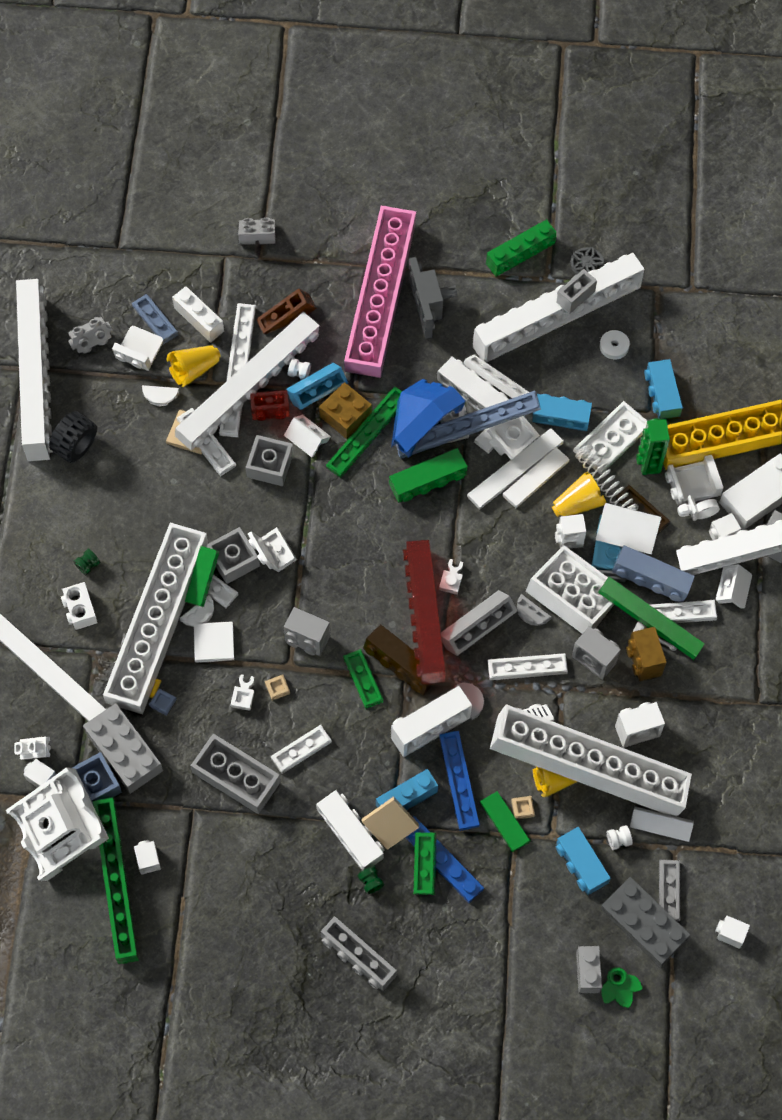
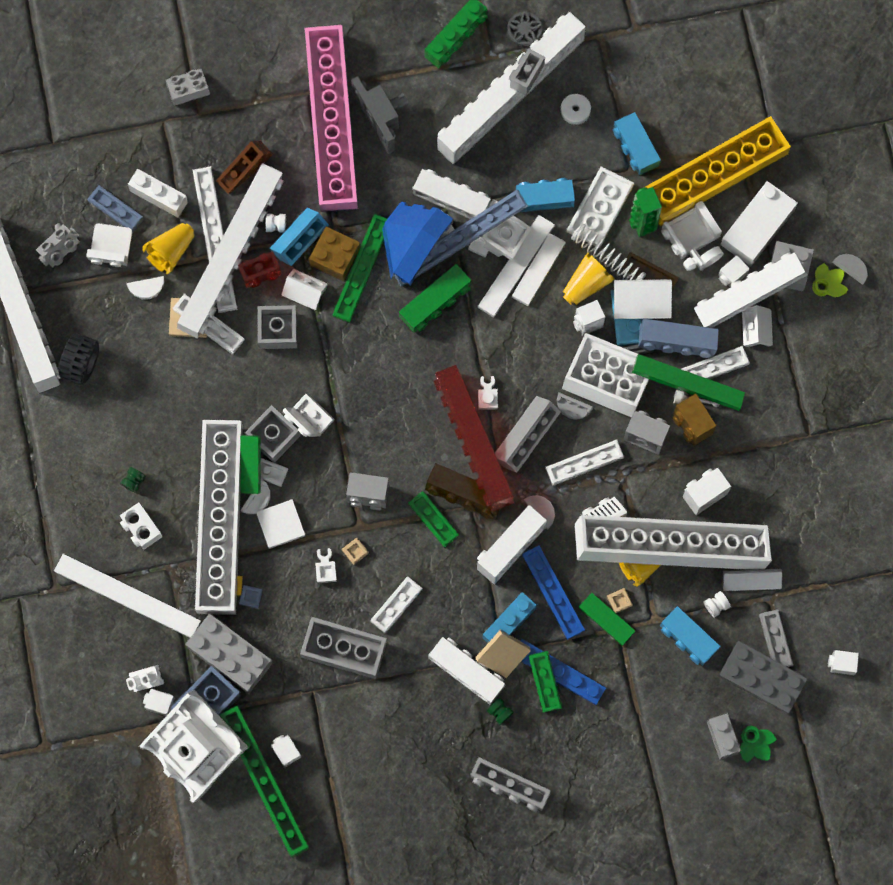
camera: 15 degrees left, 10 degrees up
(494, 377) = (472, 178): white tile -> none

